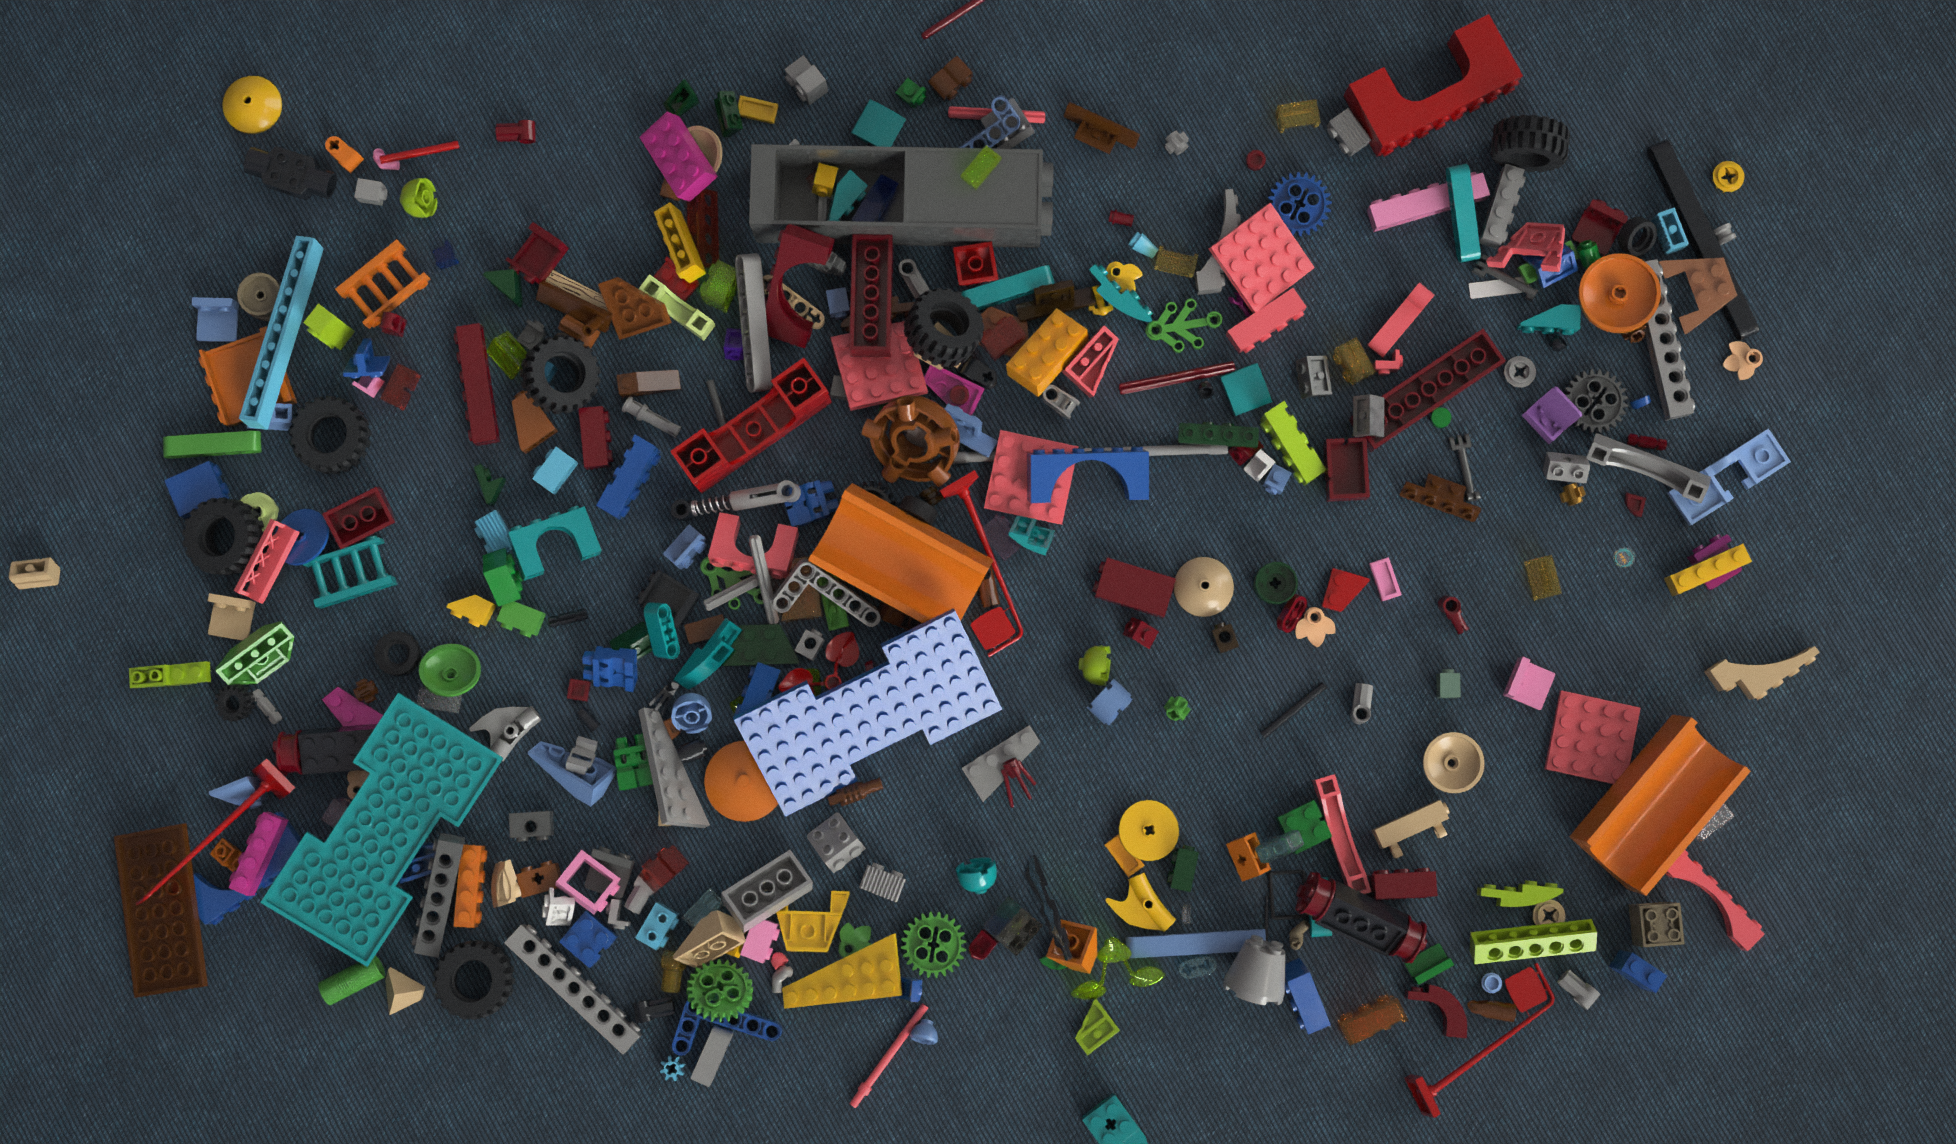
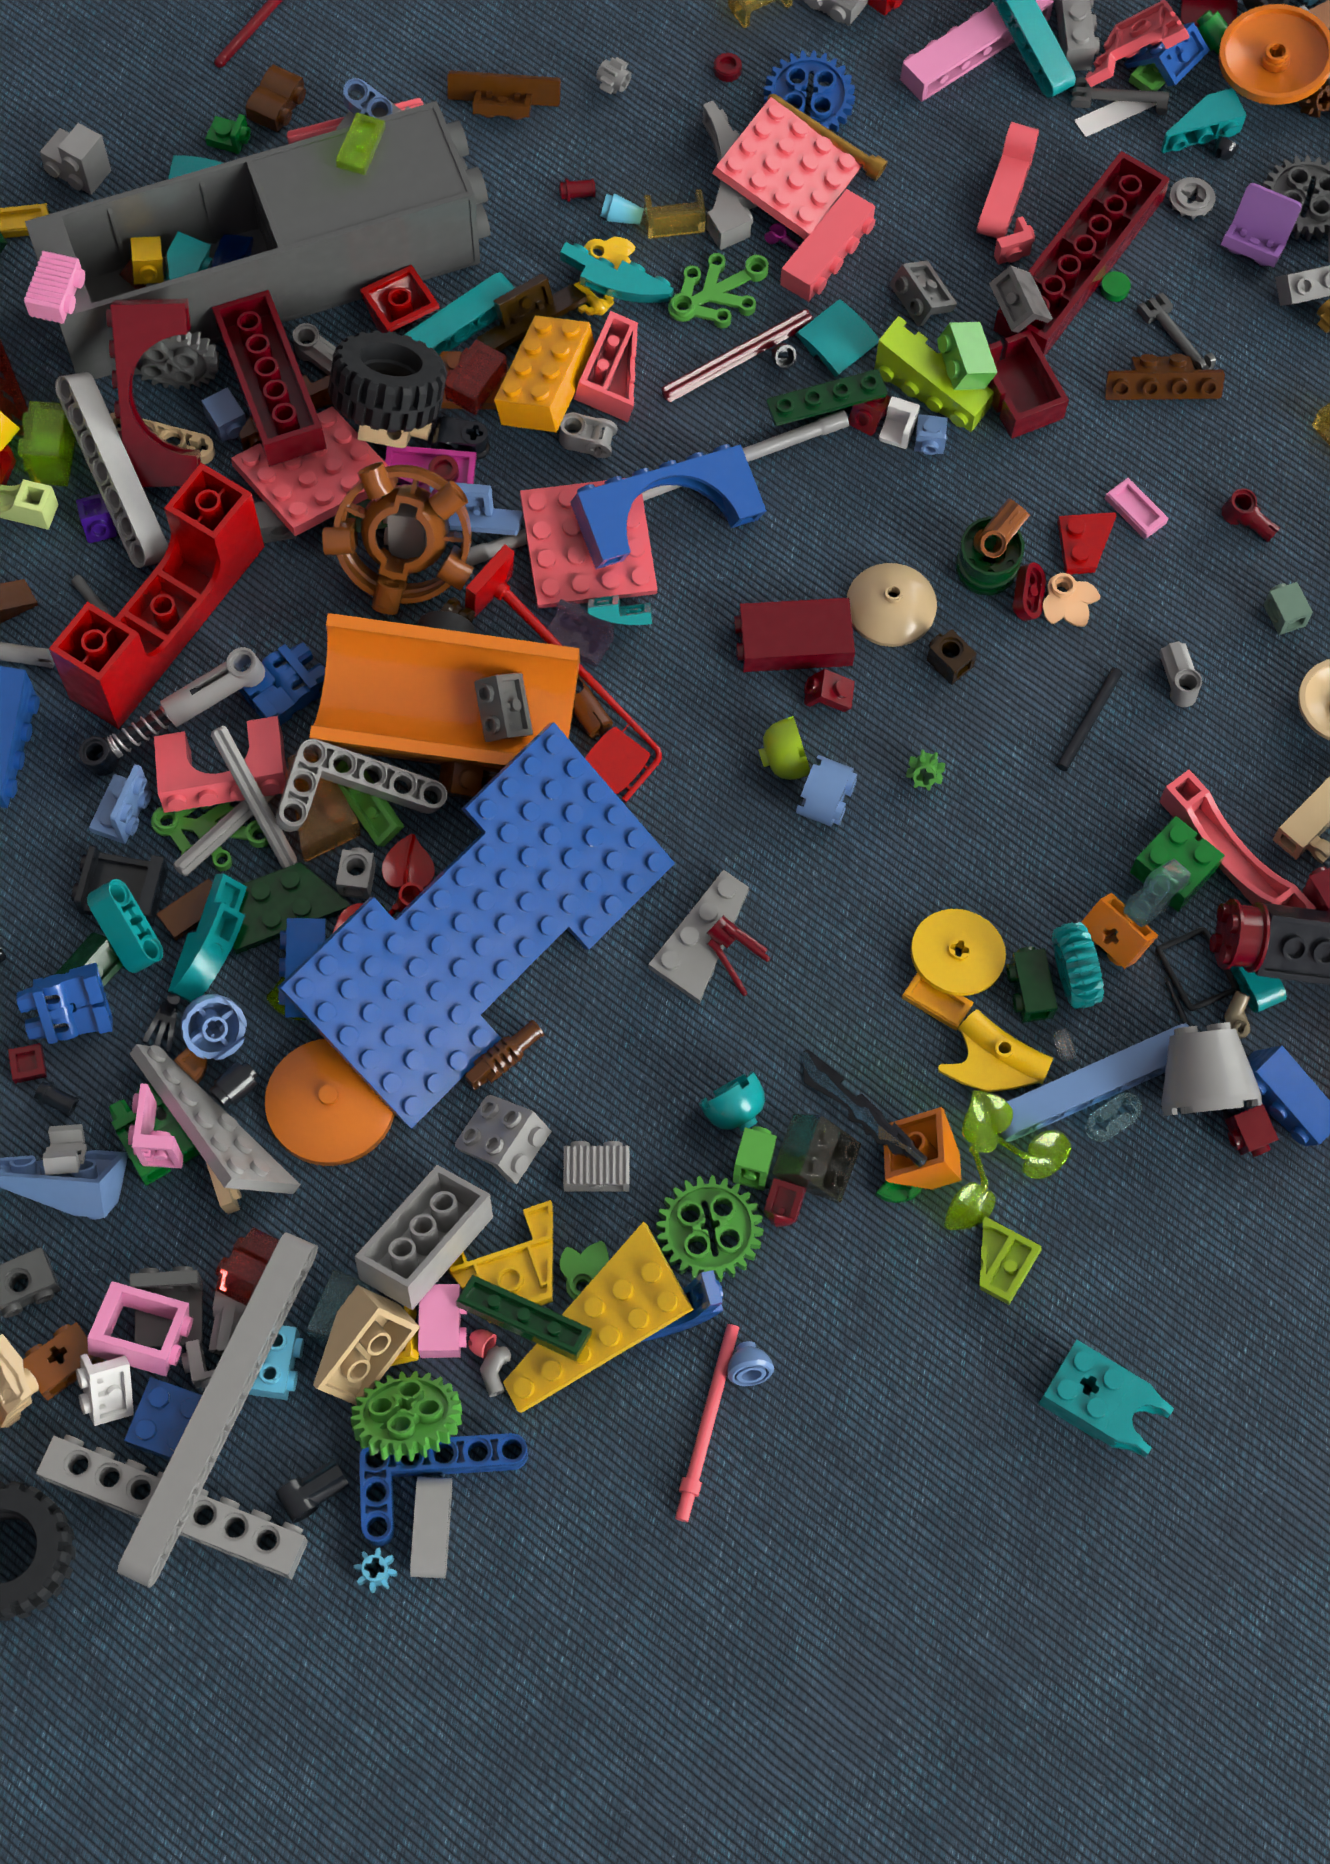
camera: 25 degrees left, 15 degrees down
(616, 947) = (217, 1410): none -> light grey beam
(624, 774) = (151, 1146): none -> bright pink bracket
(672, 972) = (319, 1413): clear yellow piece -> none
(753, 204) = (54, 287): none -> bright pink brick
(805, 960) = (524, 1317): none -> dark green tile
(932, 581) = (503, 707): none -> dark grey bracket
(975, 915) = (754, 1157): none -> bright green brick
(1212, 872) = (1077, 965): none -> teal gear
(1273, 1013) = (1251, 1131): none -> dark red brick
(1285, 576) = (1003, 527): none -> dark orange piece
(1316, 444) = (967, 355): none -> bright green brick
(1319, 271) = (872, 165): none -> pearl gold piece
(1354, 361) = (968, 254): clear yellow brick -> none

